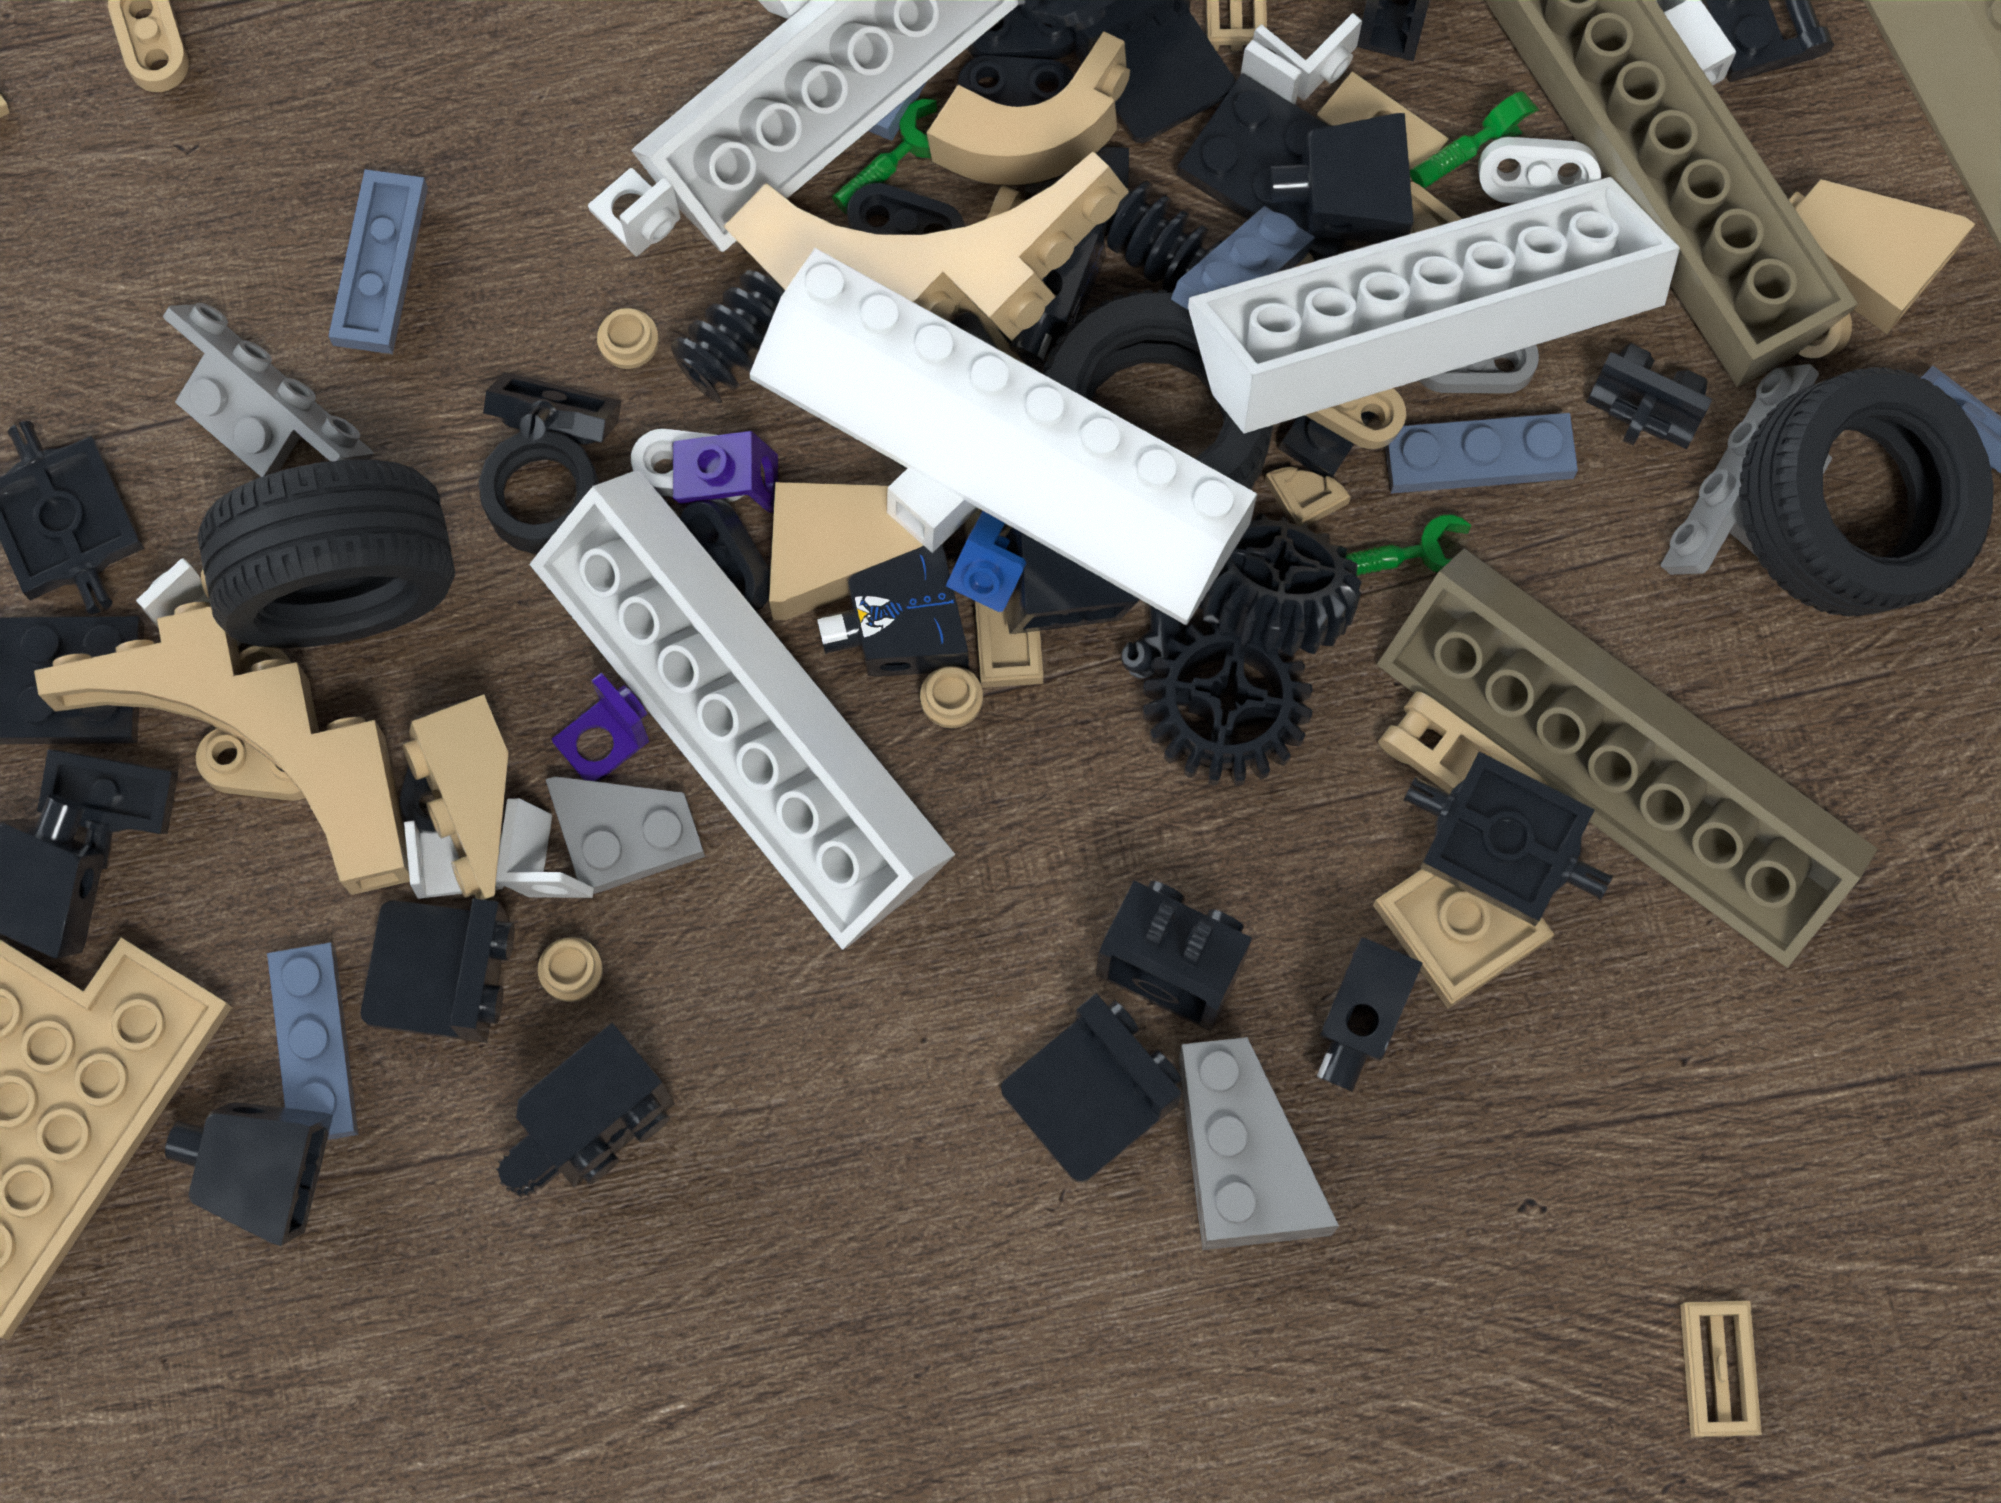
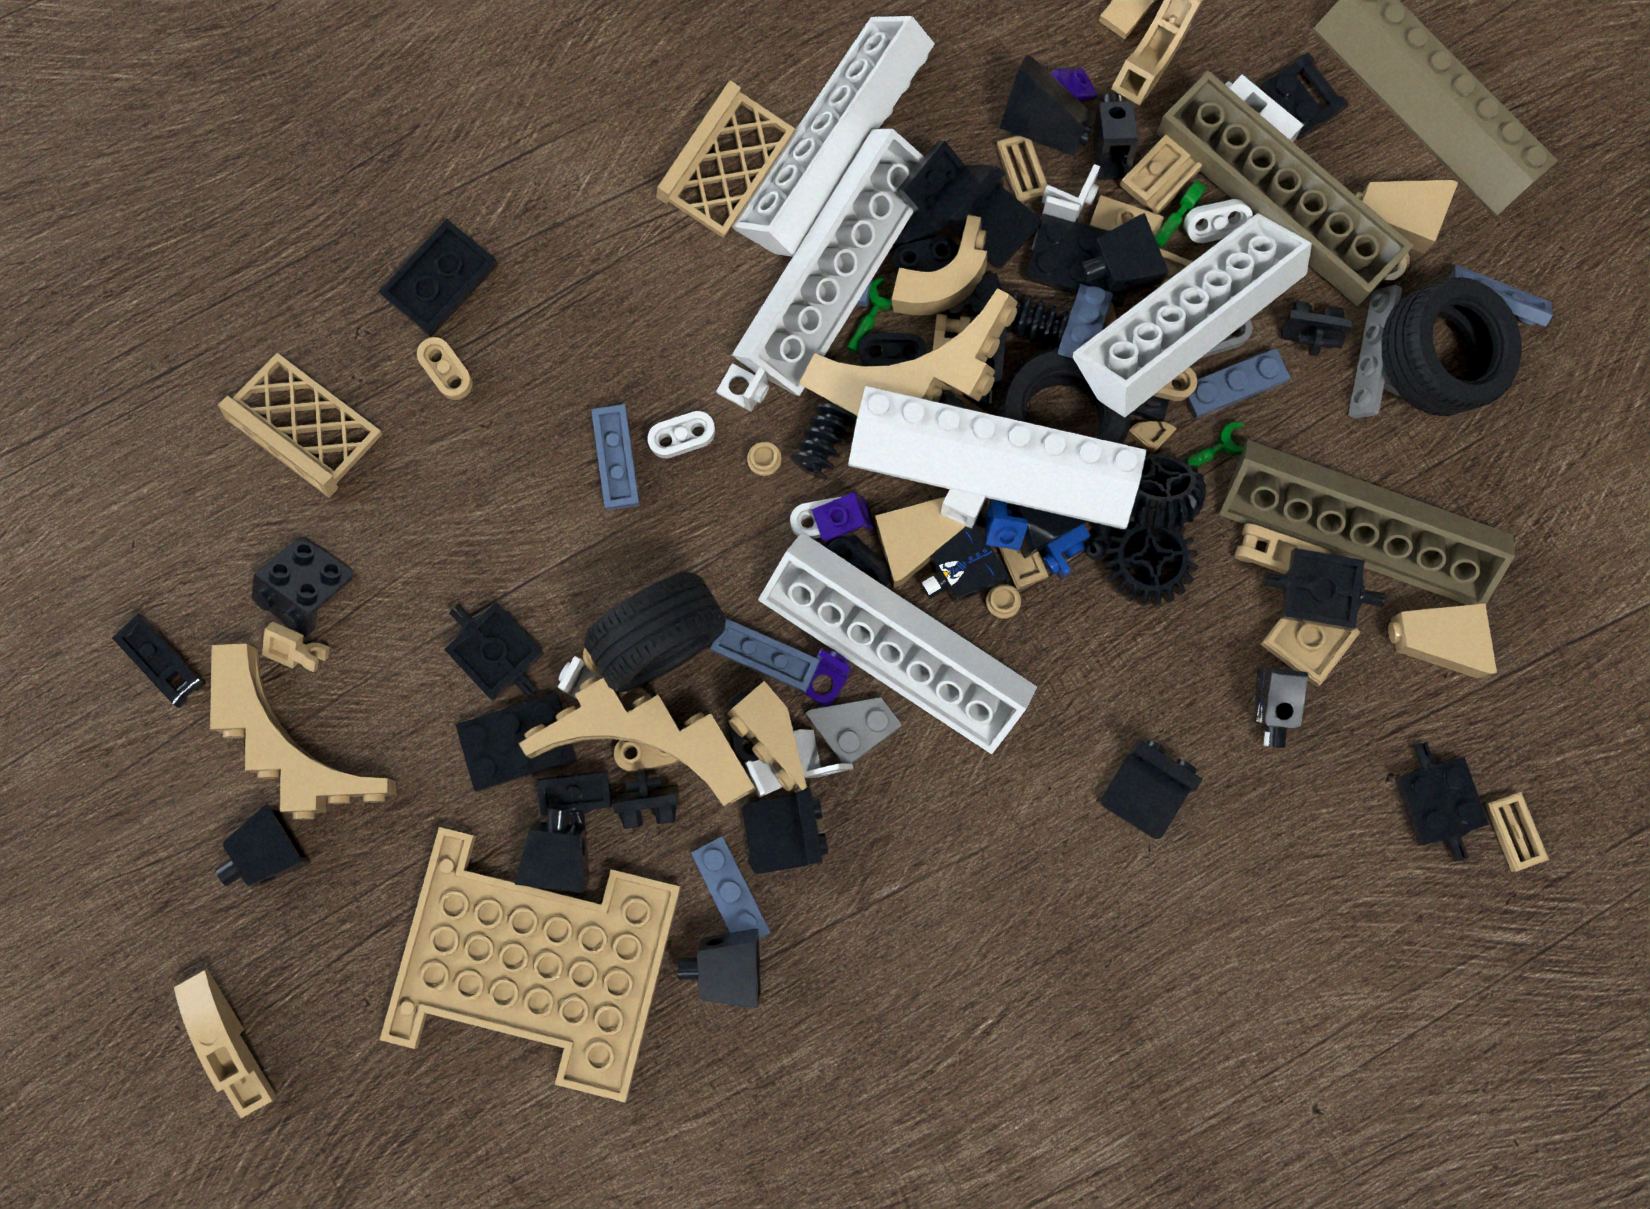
camera: 15 degrees left, 5 degrees up
(250, 401) = (574, 556): light grey bracket -> none
(250, 849) = (631, 803): none -> black hips
(504, 254) = (680, 432): none -> white plate
(511, 662) = (766, 656): none -> sand blue plate
(514, 454) = (735, 534): black tyre -> none
(542, 406) = (738, 510): black plate -> none
(570, 969) = (853, 810): tan plate -> none
(585, 1115) = (894, 886): black hinge -> none
(1091, 632) = (1068, 544): none -> blue bracket
(1173, 953) = (1172, 704): black hinge -> none
(1244, 1153) = (1240, 798): light grey wedge -> none
(1466, 68) = (1160, 175): none -> tan plate
(1602, 1273) = (1441, 801): none -> black plate
(1703, 991) = (1447, 637): none -> tan slope

